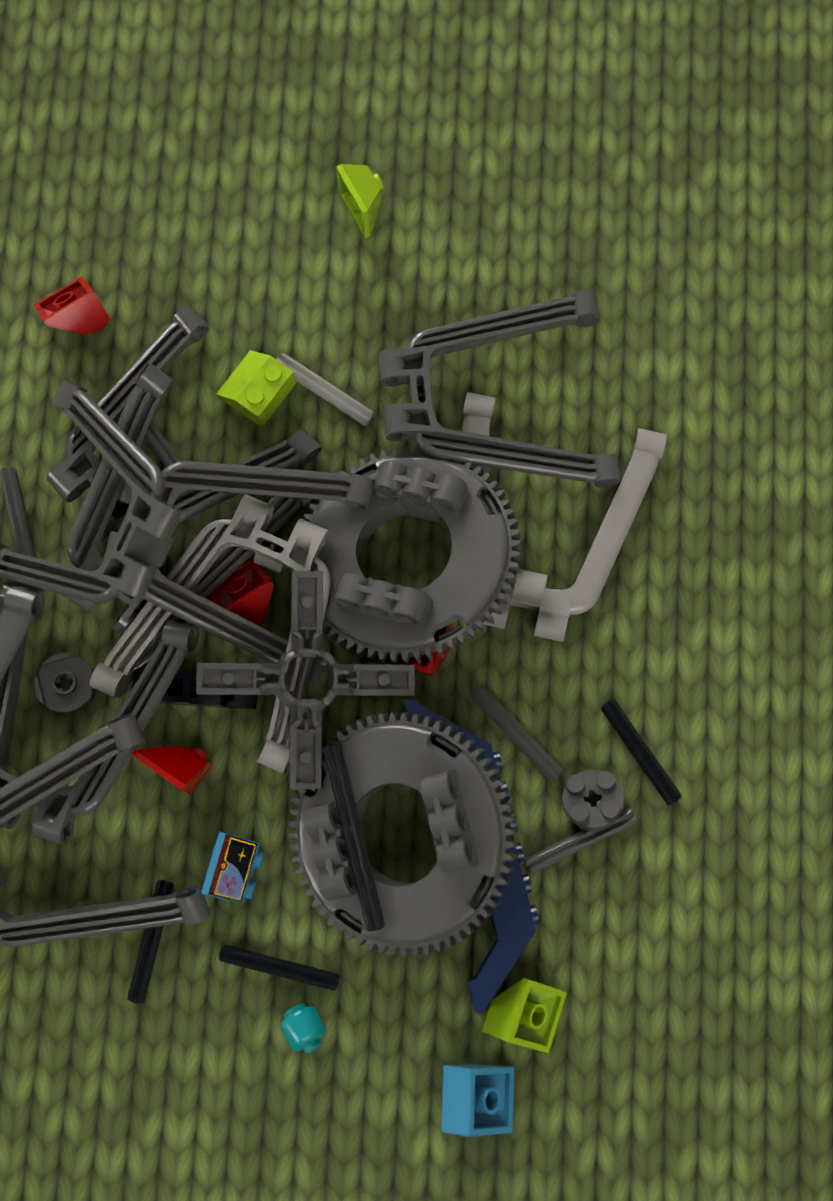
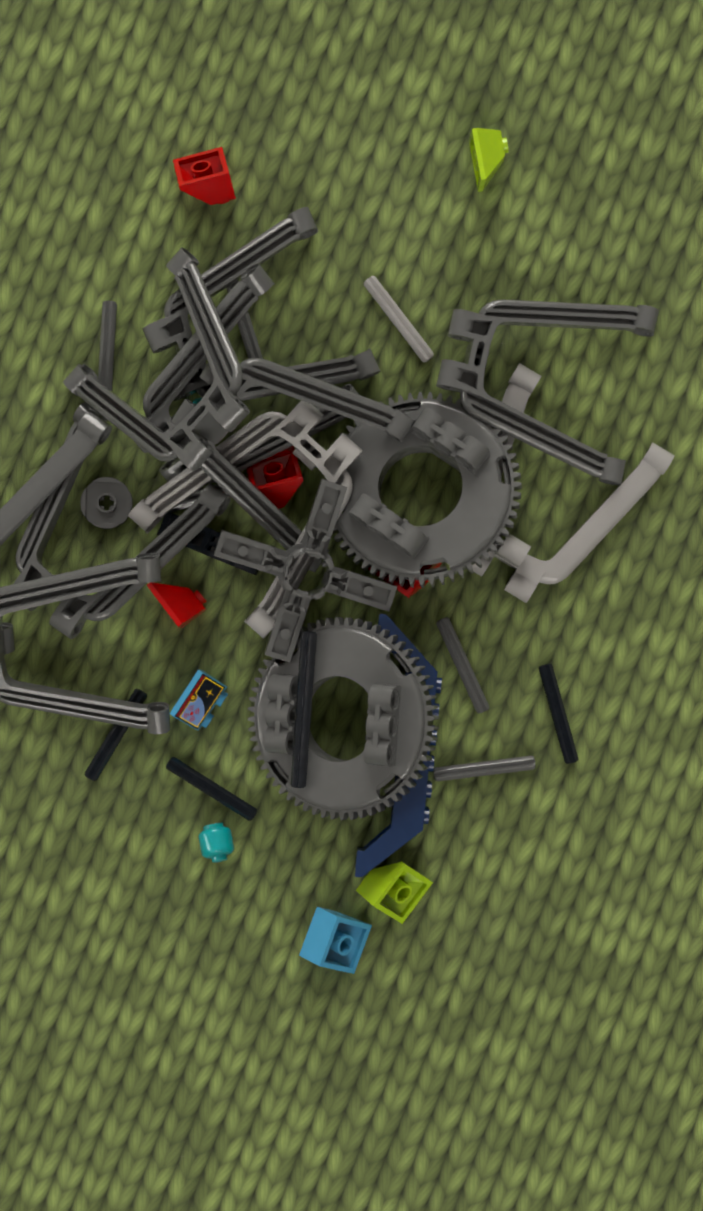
camera: 15 degrees right, 10 degrees up
(257, 386) = (342, 298): lime slope -> none
(602, 785) = (516, 729): dark grey plate -> none

